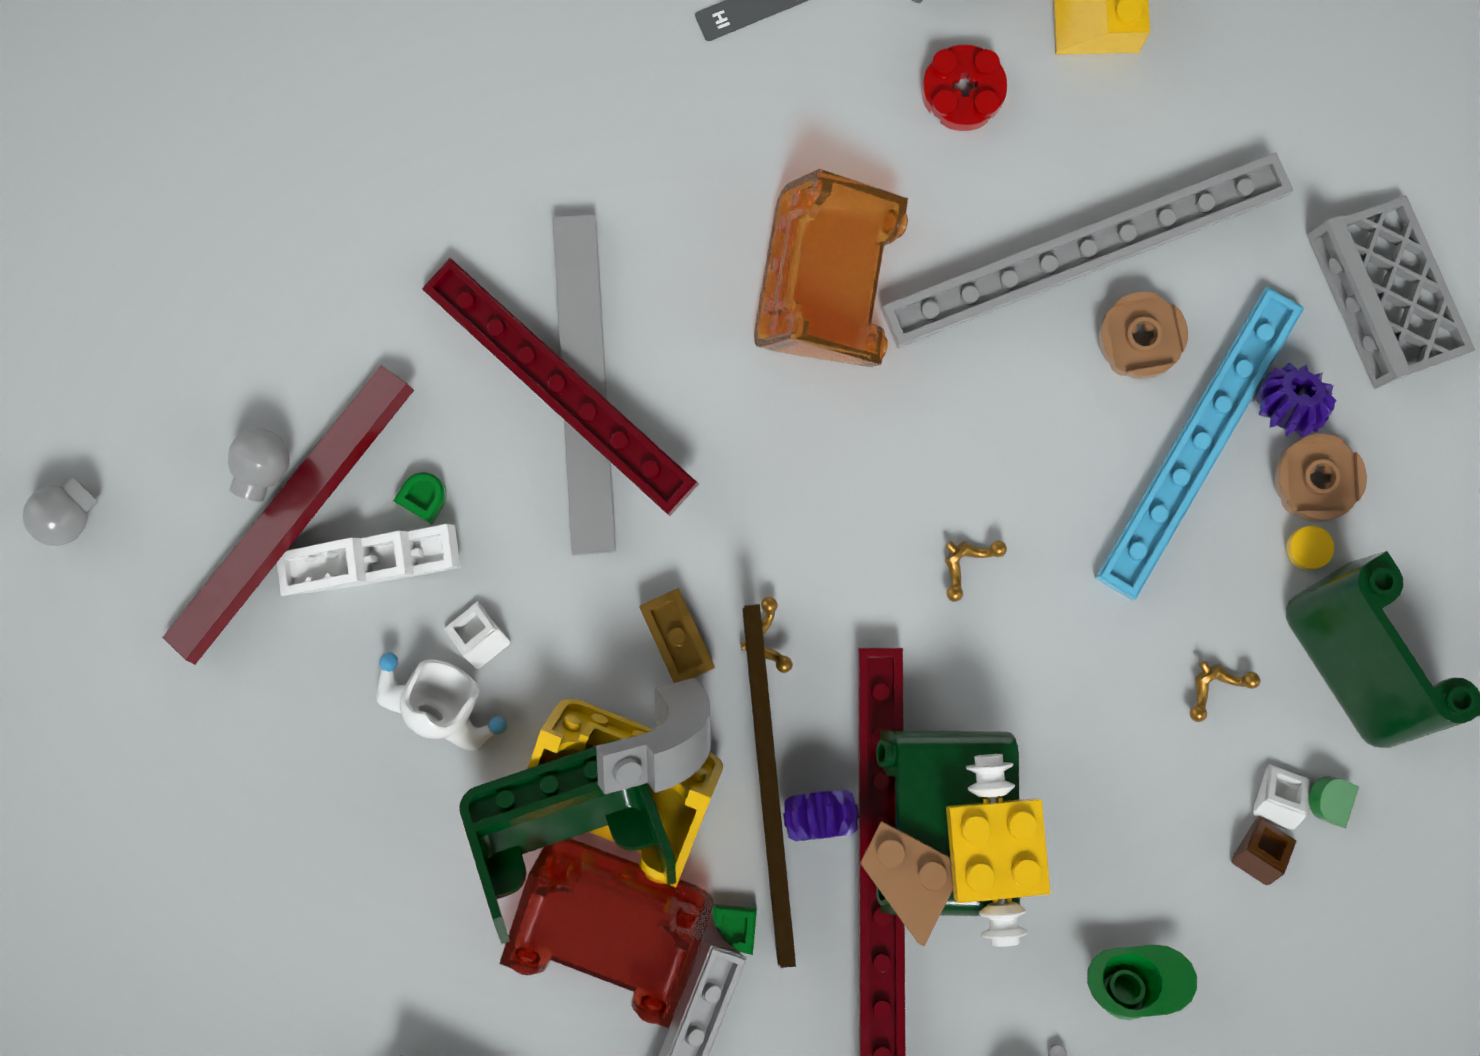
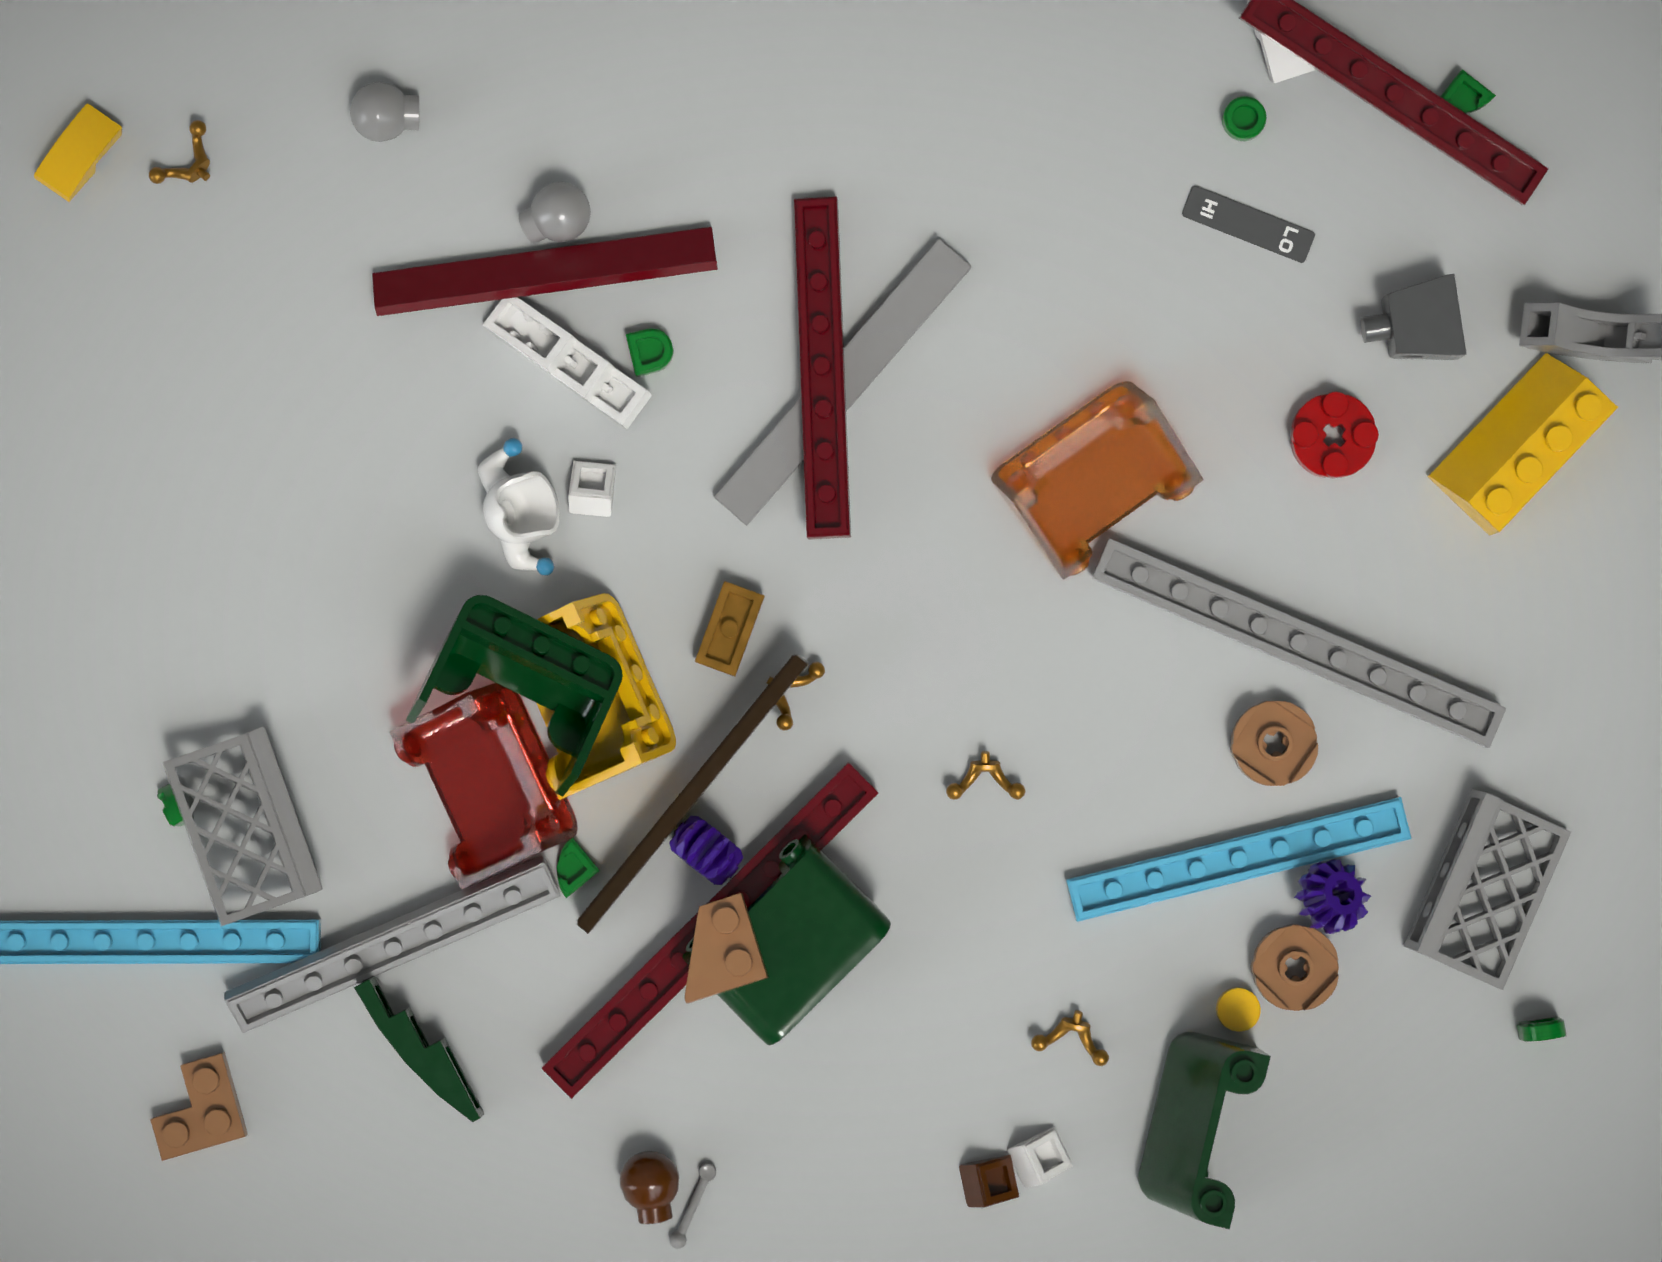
camera: 40 degrees right, 5 degrees up
(666, 753) = (644, 703): light grey arch -> none
(997, 850) = (799, 988): yellow plate -> none
(1141, 981) = (812, 1177): green piece -> none
(1333, 800) = (1071, 1193): green tile -> none

